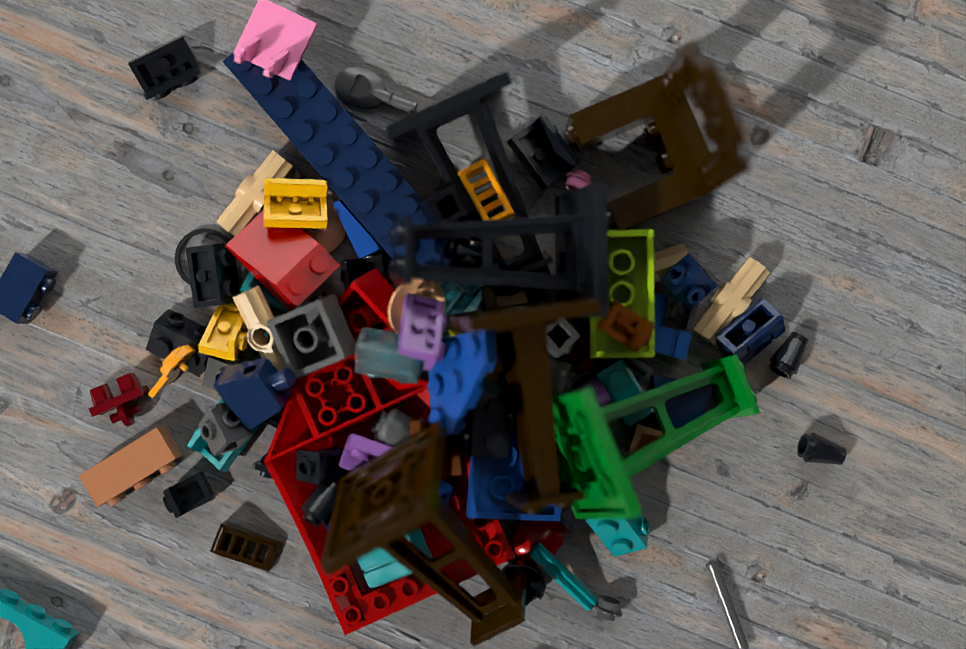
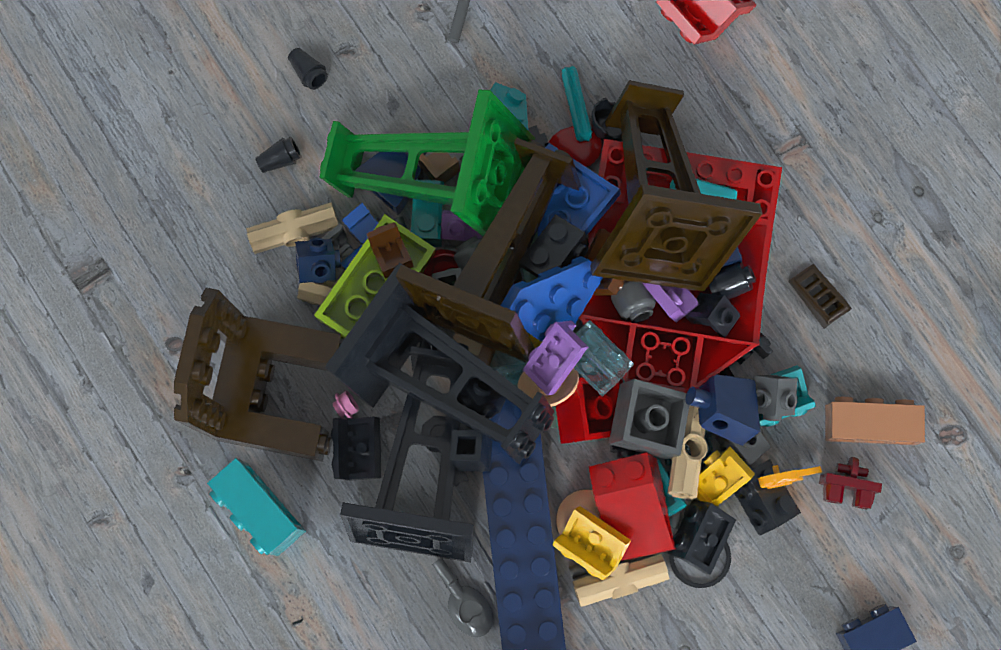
camera: 145 degrees left, 10 degrees down
(188, 494) = (841, 367): black bracket -> none
(355, 268) = (573, 455): black bracket -> none
(360, 237) = (556, 480): blue slope -> none
(472, 171) = (425, 465): light orange slope -> none
(590, 44) = (255, 508): none -> teal brick
(608, 607) = (557, 58): dark grey plate -> none
(751, 331) = (295, 191): dark blue brick -> none

